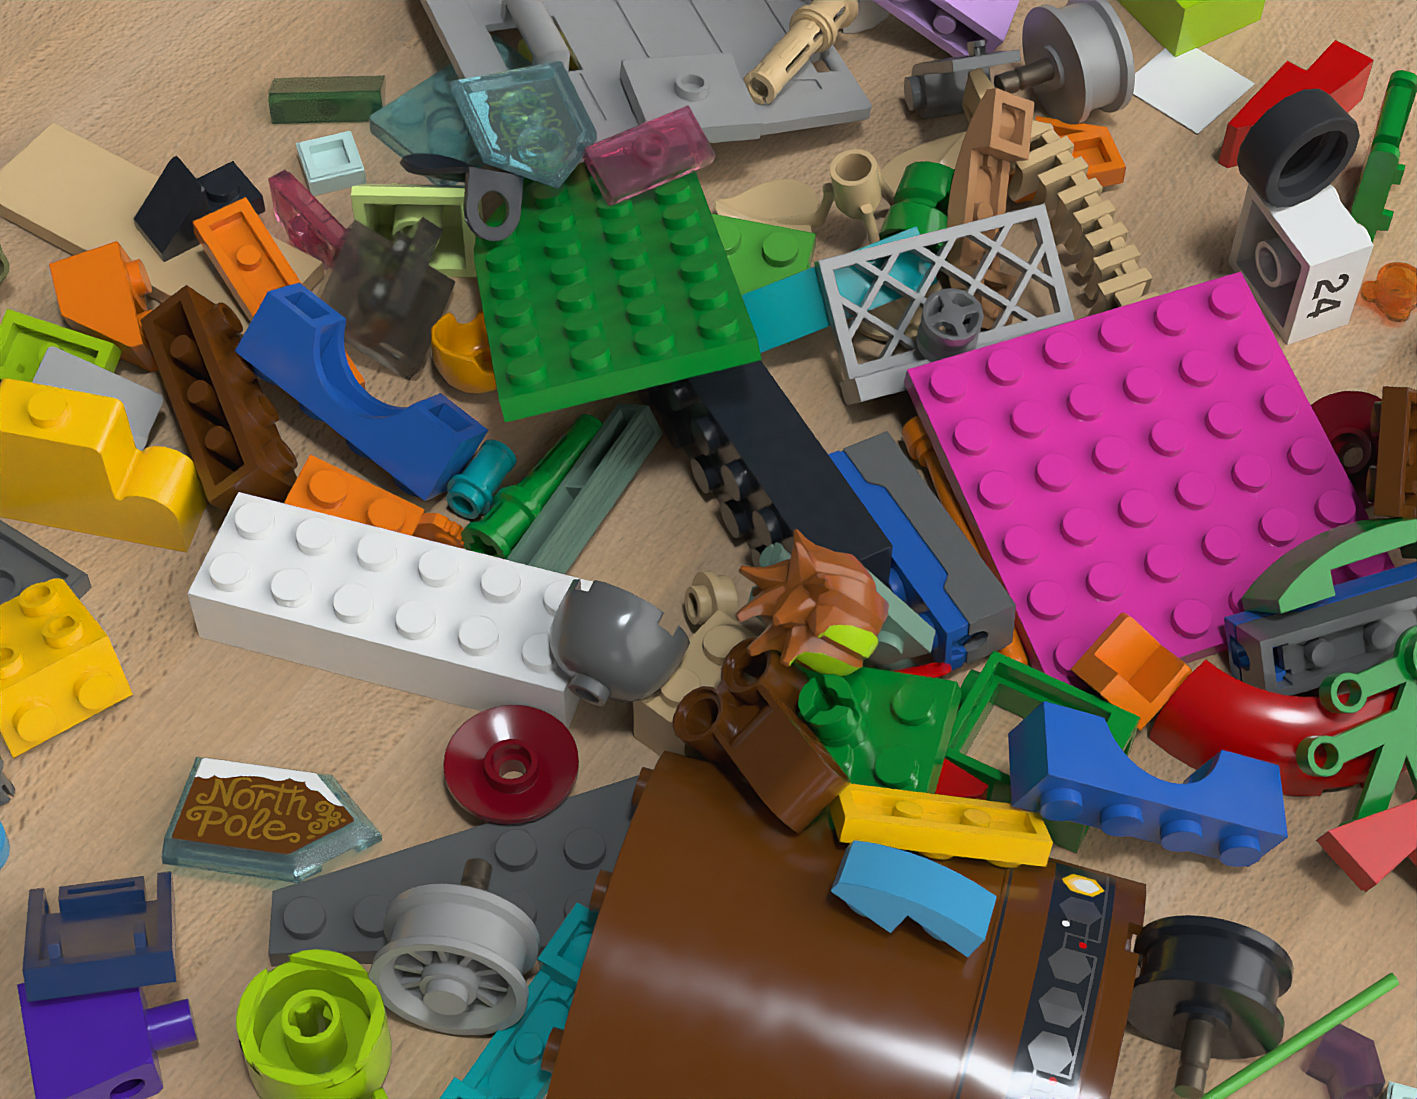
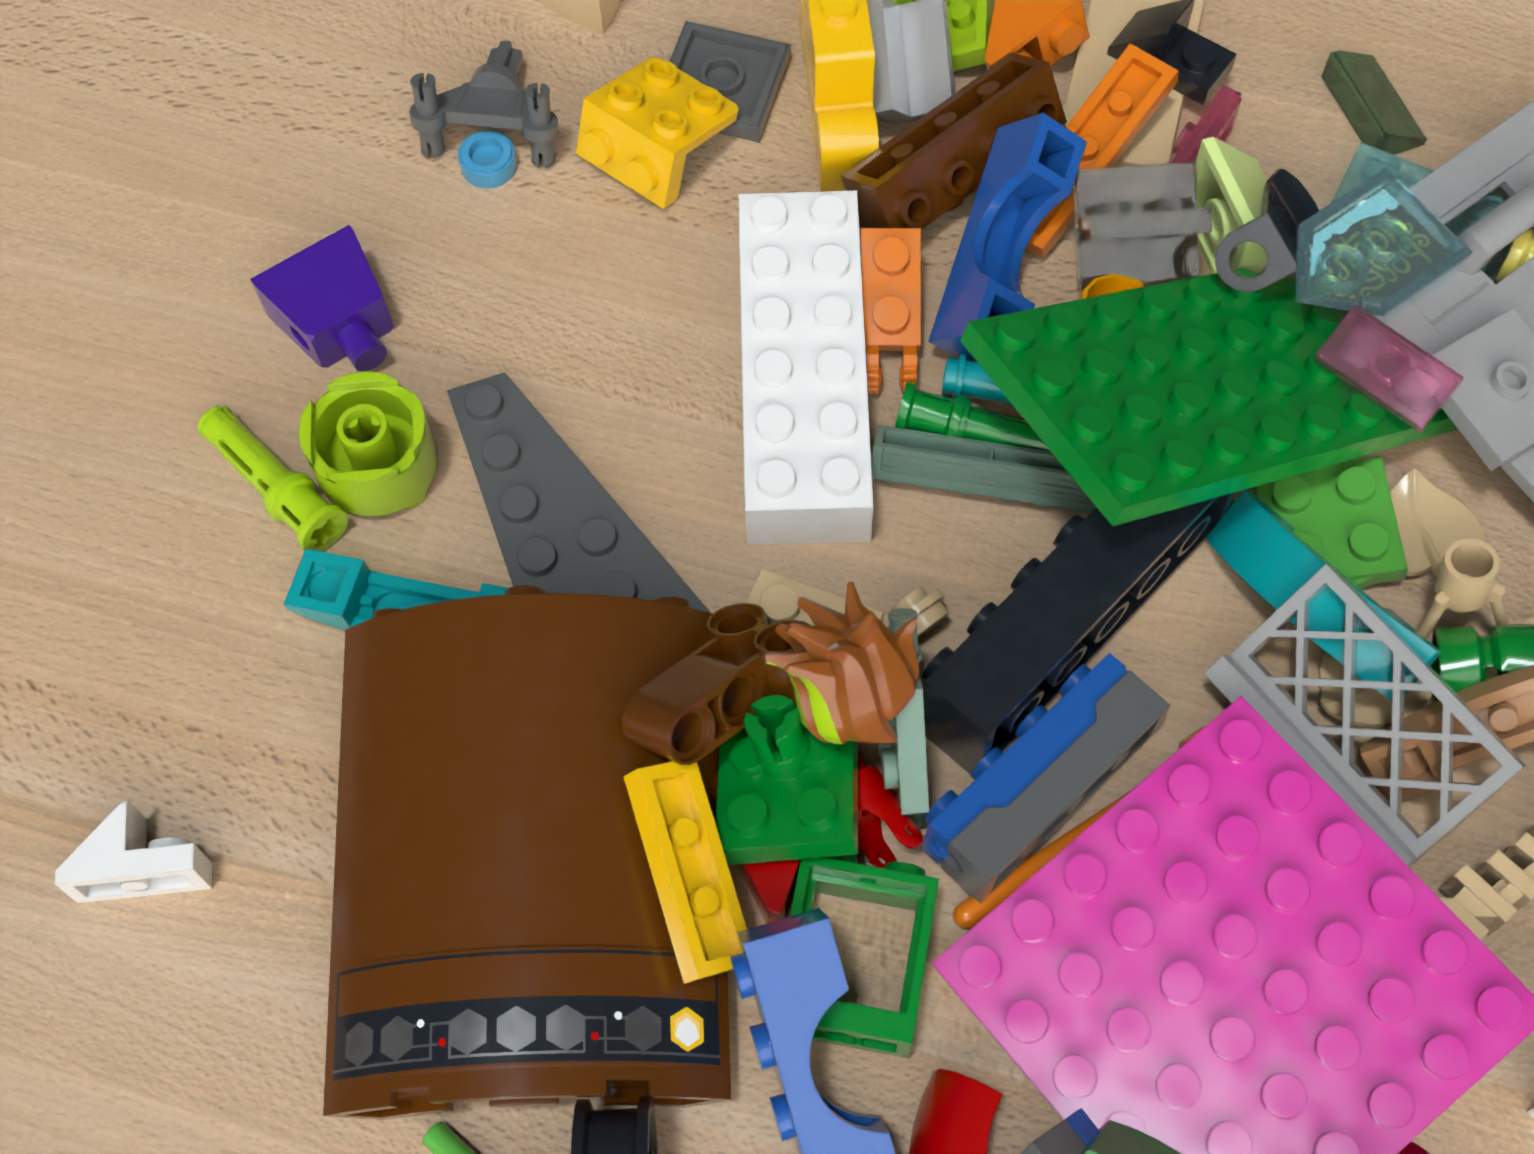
camera: 75 degrees right, 10 degrees up
(100, 938) = (420, 270): dark blue container -> none
(263, 821) = (569, 342): tile -> none
(330, 163) = (1294, 137): light aqua tile -> none
(456, 956) = (458, 516): light grey wheel -> none
(504, 742) = (680, 481): dark red dish -> none
(613, 644) = (786, 527): dark grey cylinder -> none
(895, 883) = (576, 855): dark azure slope -> none
(957, 313) = (1325, 709): flat silver wheel -> none
(1131, 669) = (972, 1024): orange panel -> none

